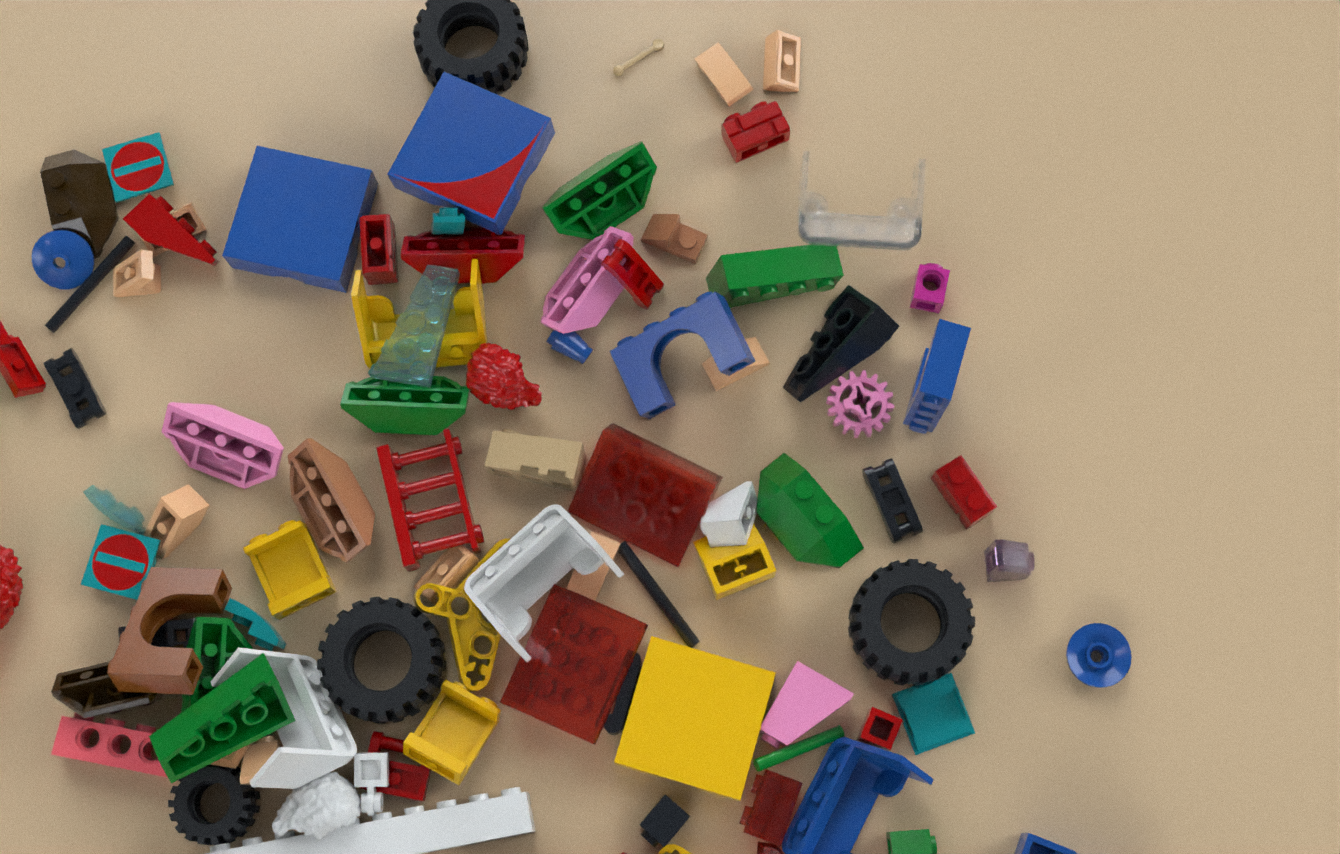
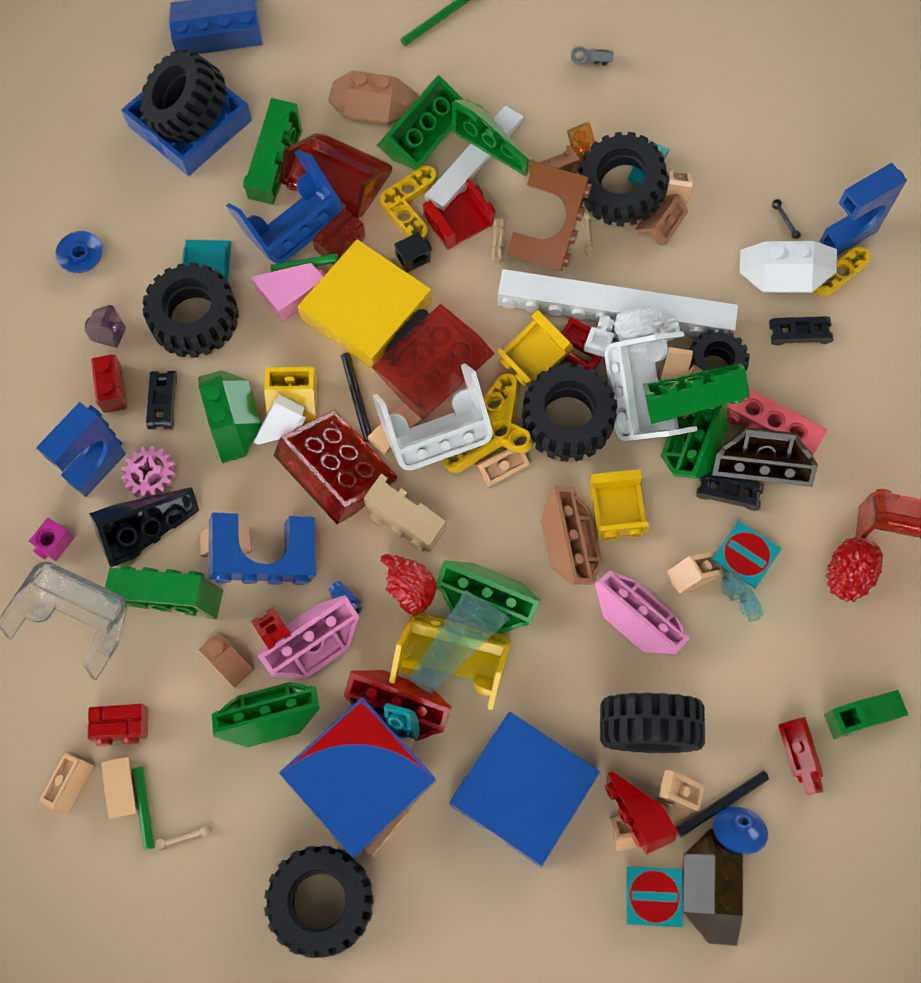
camera: 160 degrees left, 5 degrees down
(75, 388) = (754, 713): black plate -> none
(164, 595) = (718, 513): dark orange arch -> none
(174, 311) = (652, 723): none -> black tyre
(261, 629) = (650, 466): teal slope -> none
(378, 249) = (467, 732): red brick -> none
(406, 521) = (516, 531): red fence -> none
(691, 69) = (143, 808): none -> green bar
(879, 729) = (246, 253): red brick -> none

